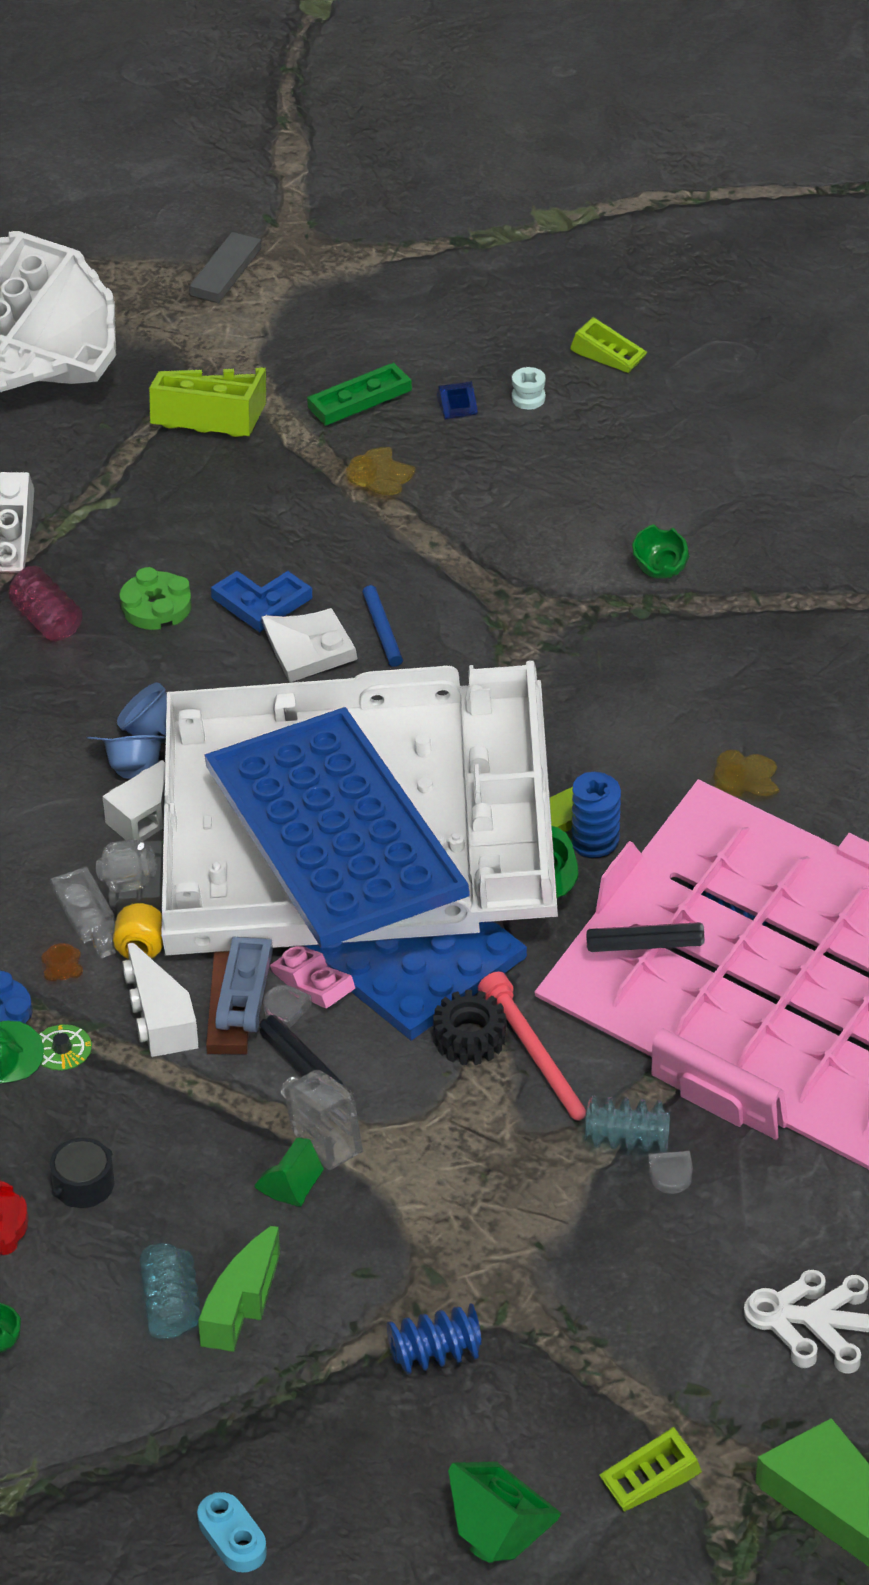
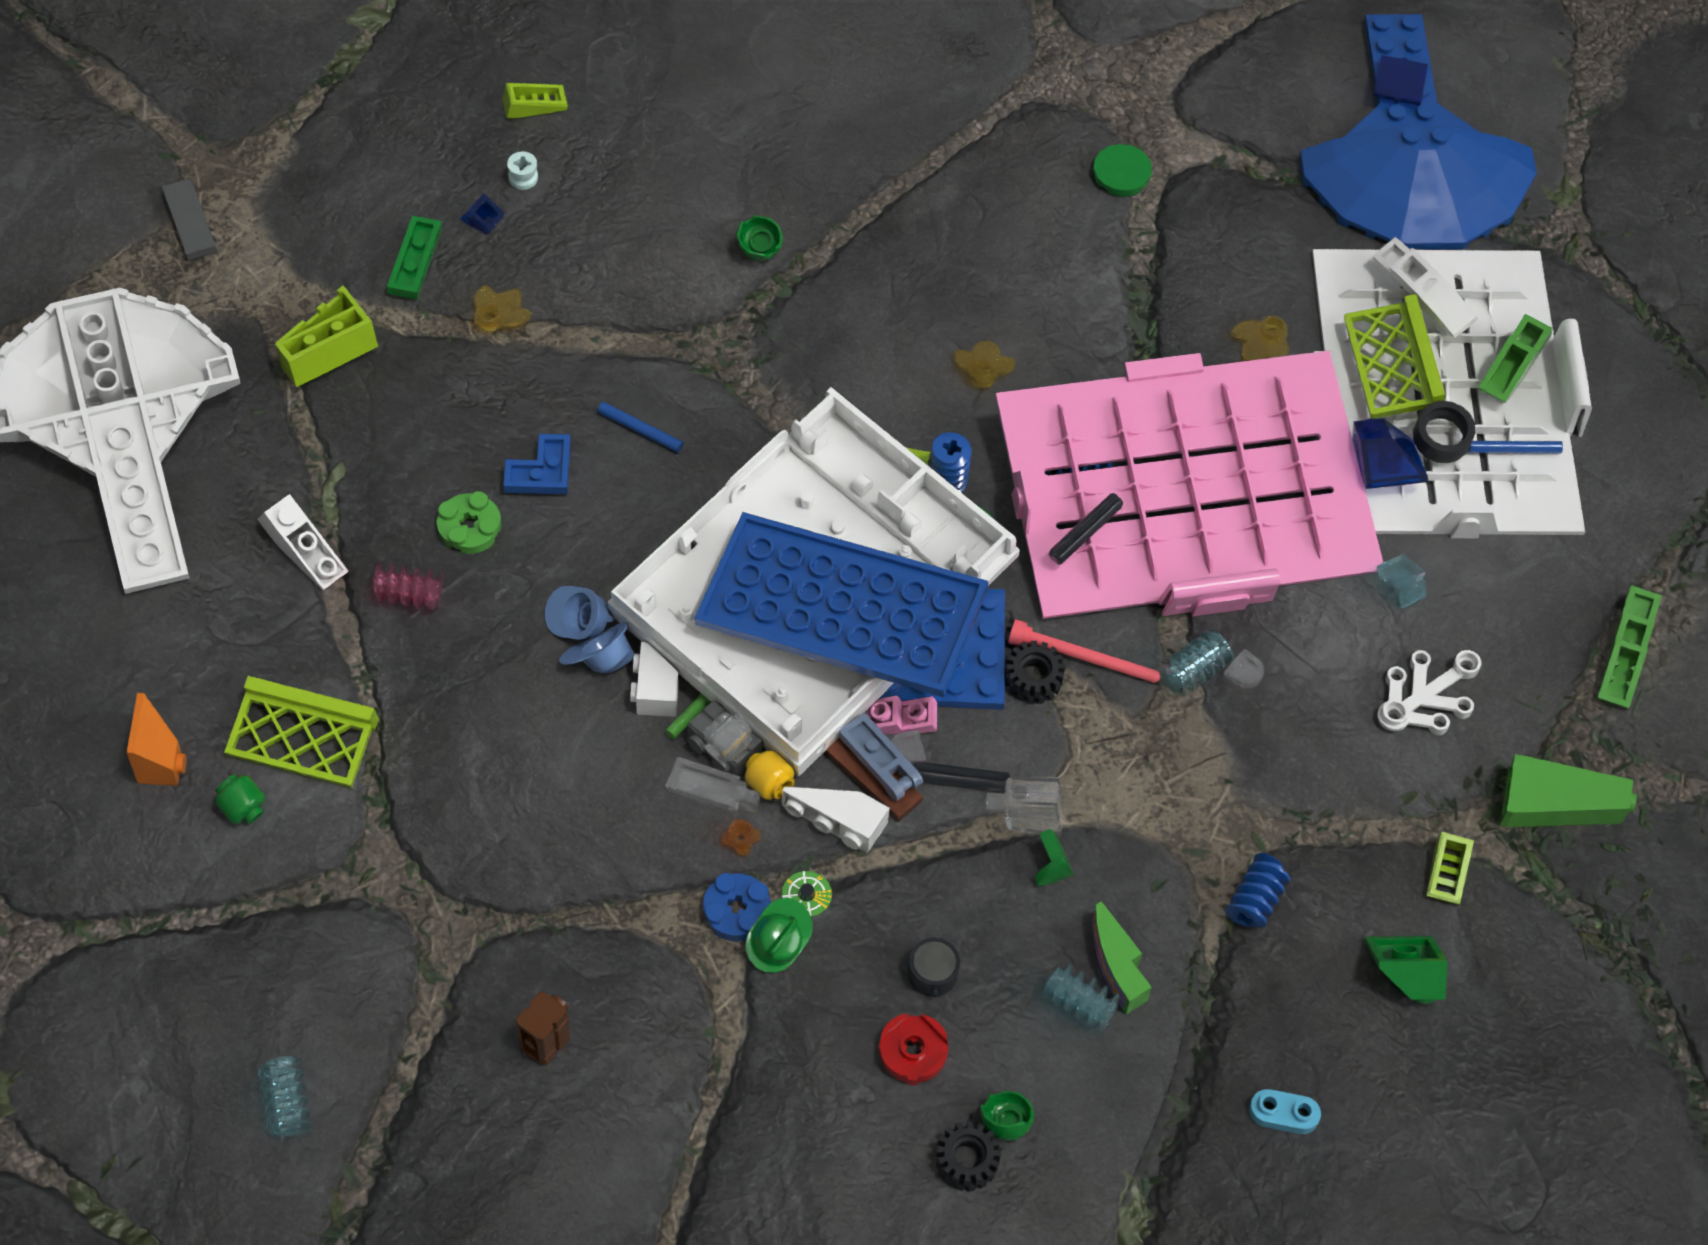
camera: 50 degrees left, 15 degrees up
(309, 643) = (612, 477): white plate -> none

